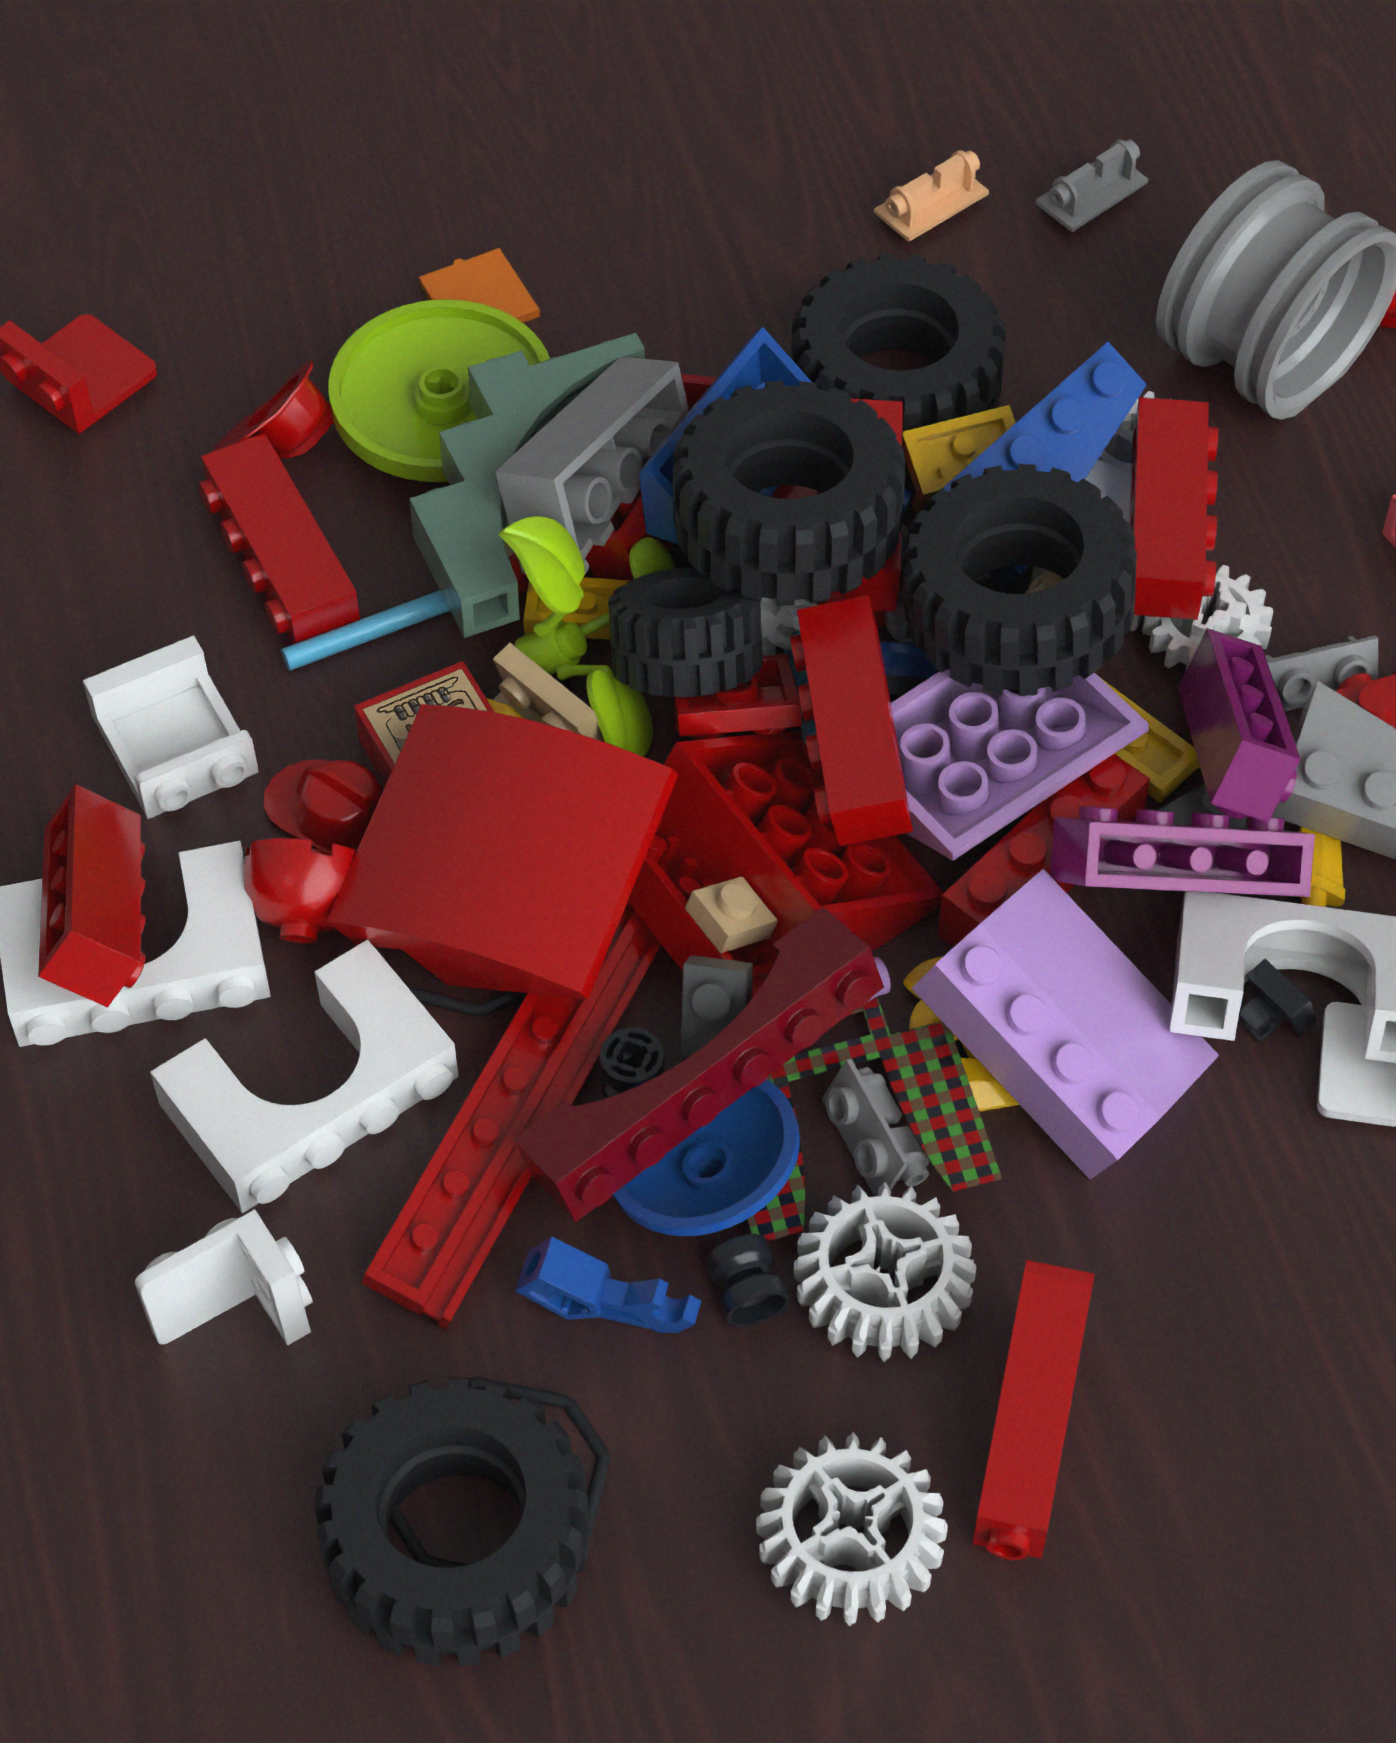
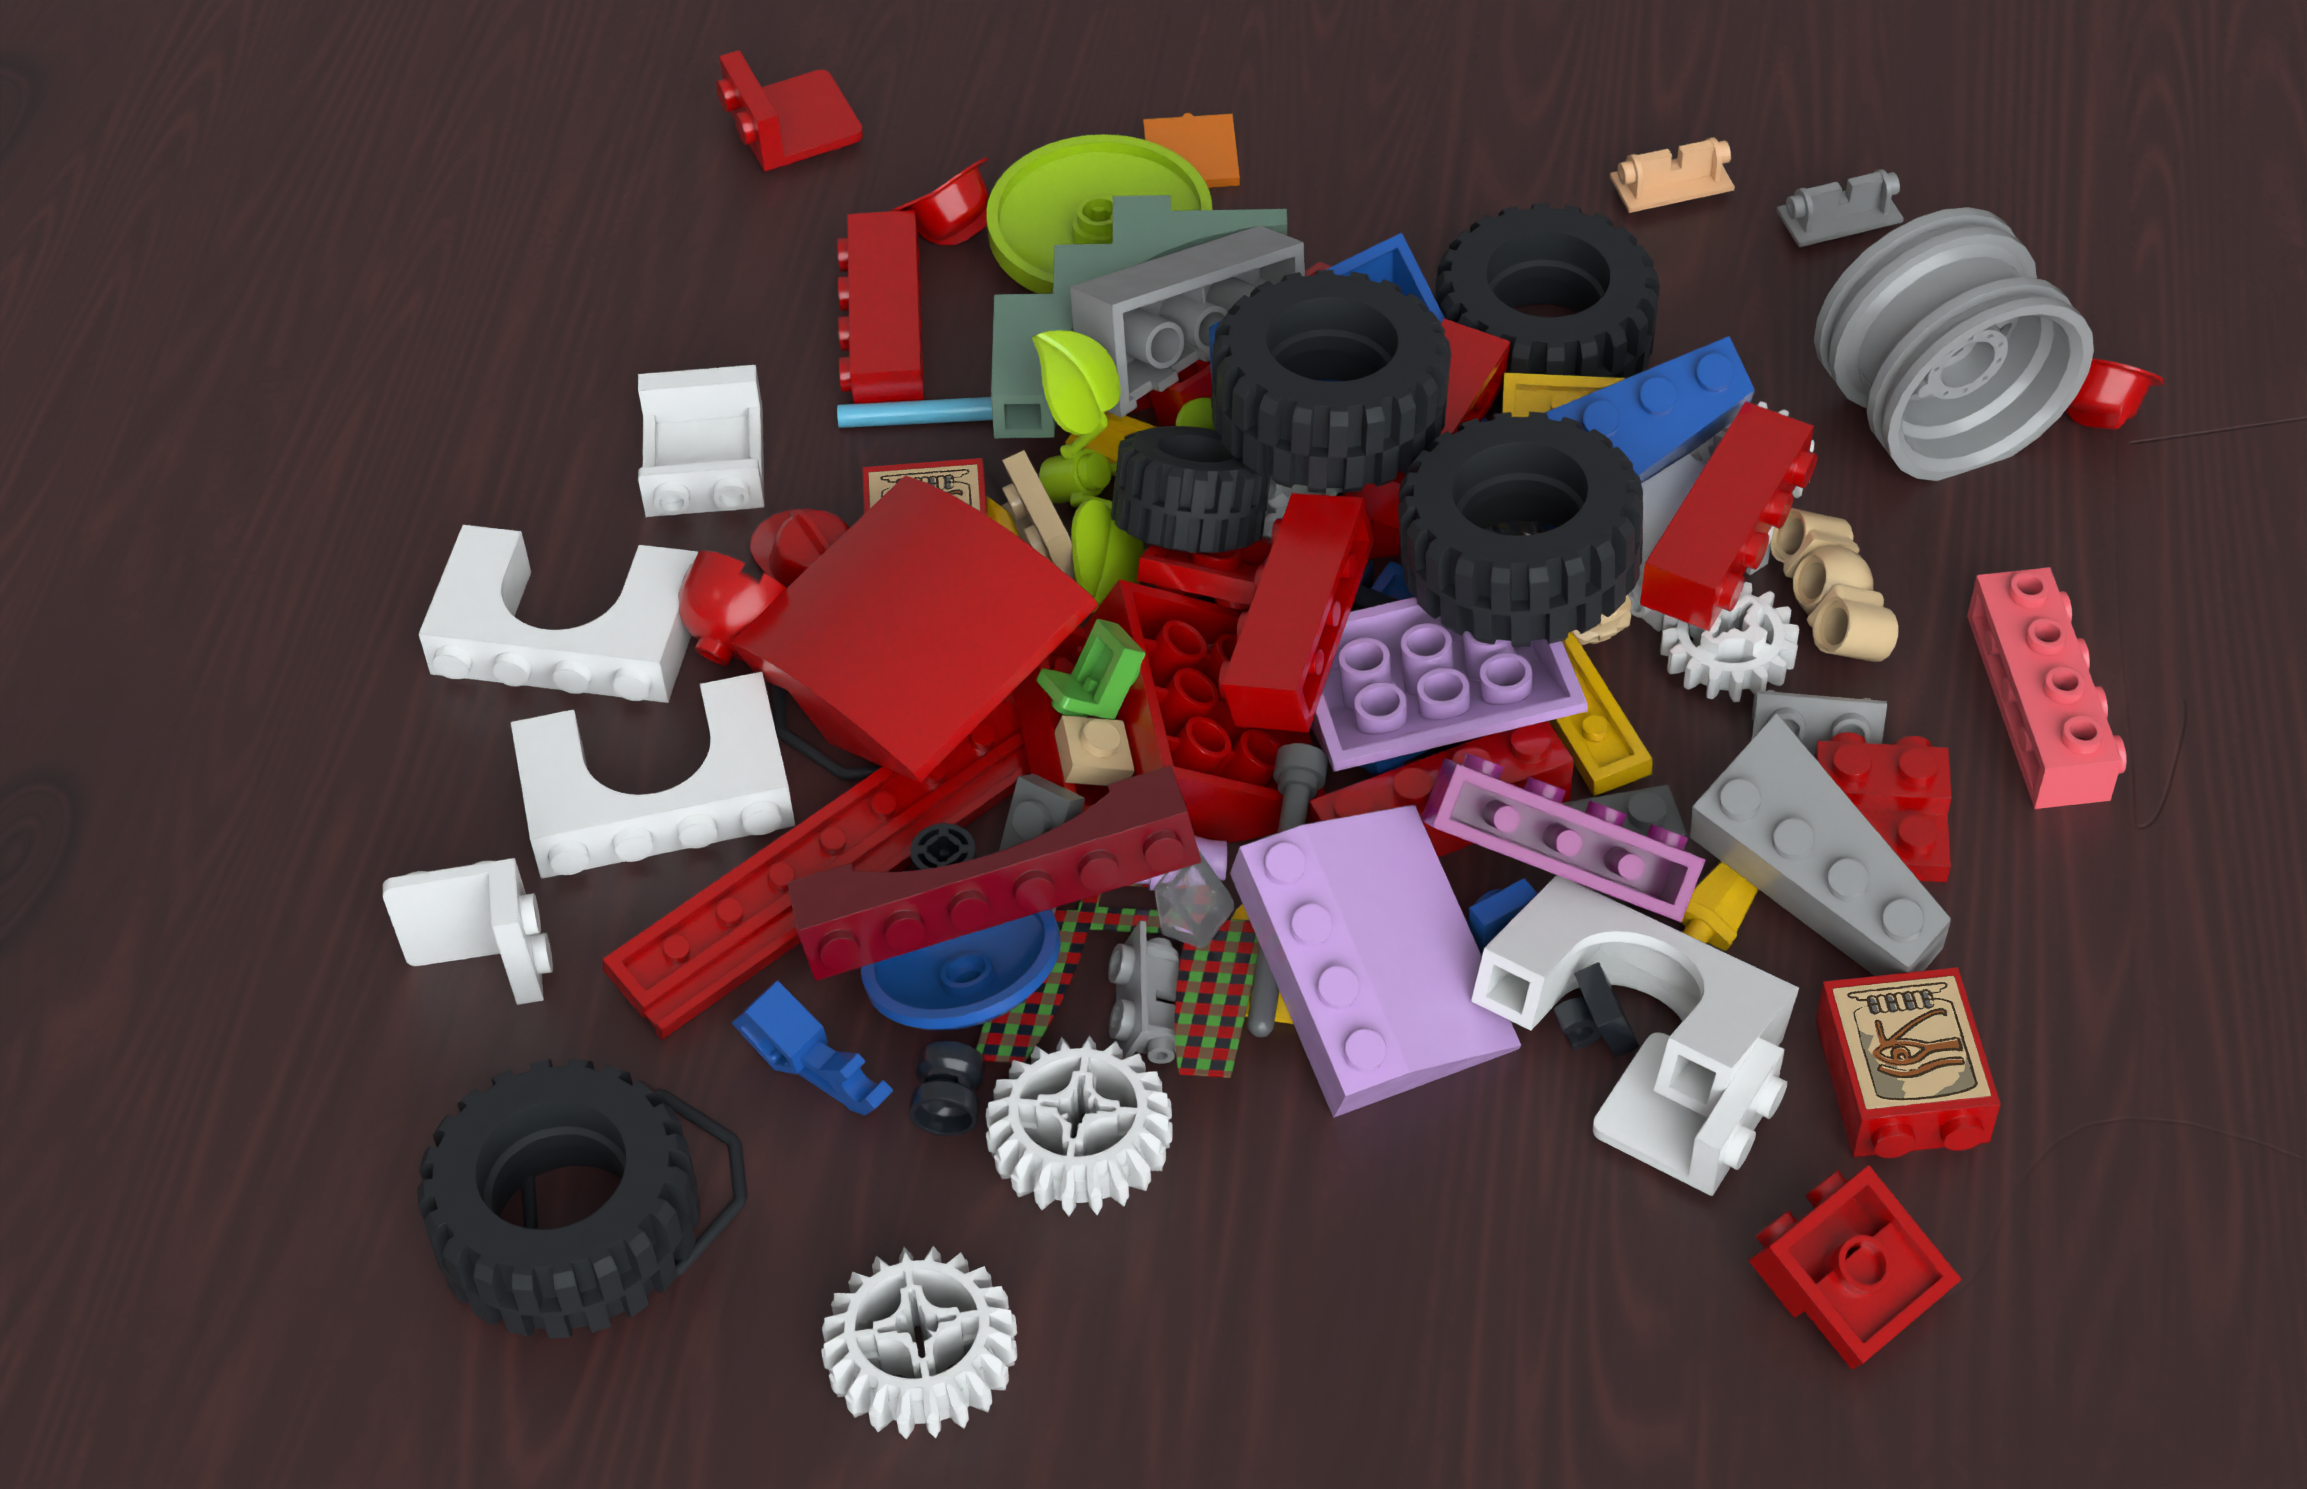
camera: 25 degrees right, 5 degrees down
(92, 897) = (538, 557): red brick -> none
(706, 840) = (1100, 677): none -> bright green bracket
(882, 1030) = (1192, 904): none -> clear slope
(918, 873) = (1299, 774): none -> dark grey piece
(1033, 1411) = (1143, 1294): red slope -> none
(1152, 942) = (1496, 910): none -> blue plate
(1238, 727) = (1684, 739): magenta brick -> none
(1290, 556) = (1834, 586): none -> tan piece

